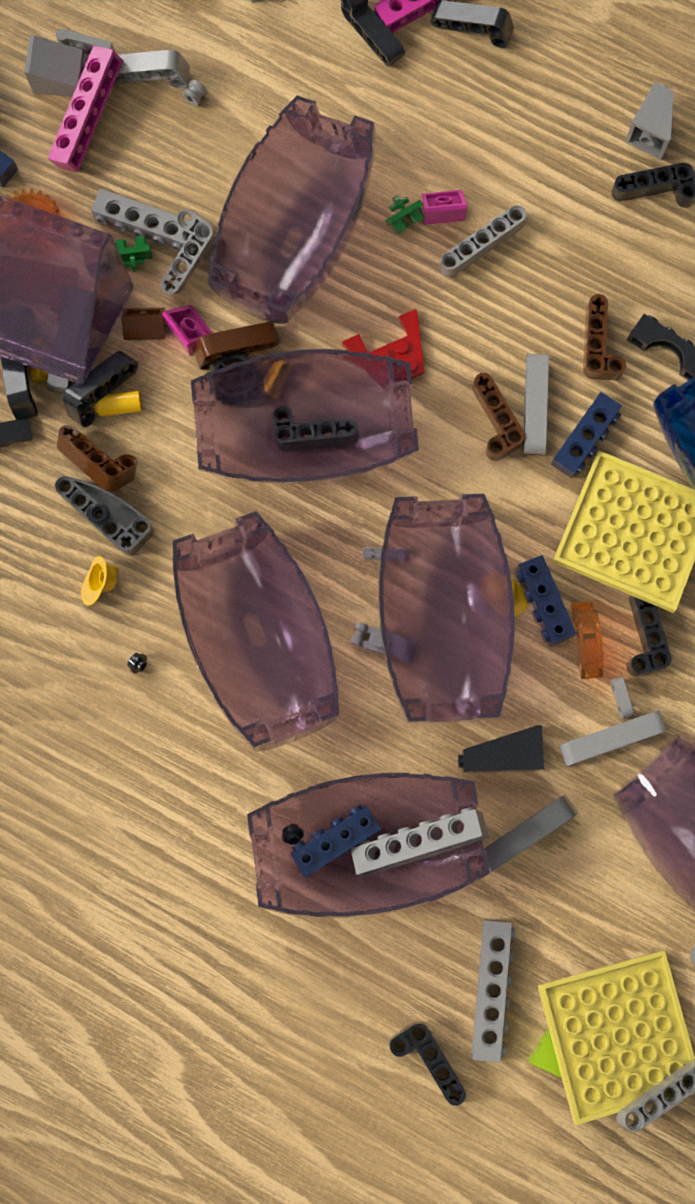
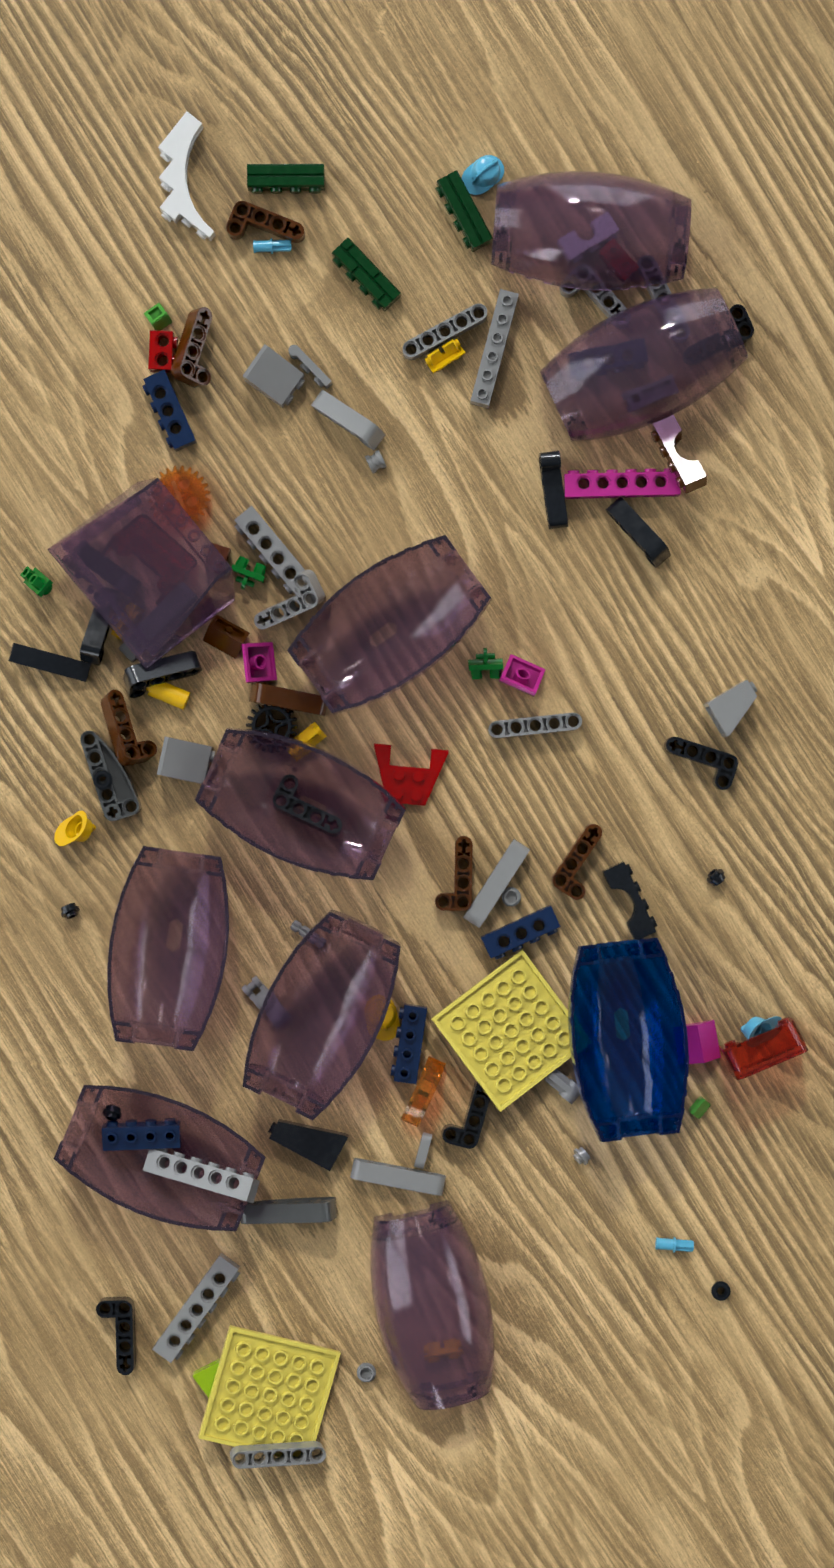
camera: 25 degrees right, 10 degrees up
(85, 109) = (286, 429): dark pink brick -> none
(169, 454) = (185, 760): none -> light grey slope
(557, 409) = (511, 896): none -> light grey plate

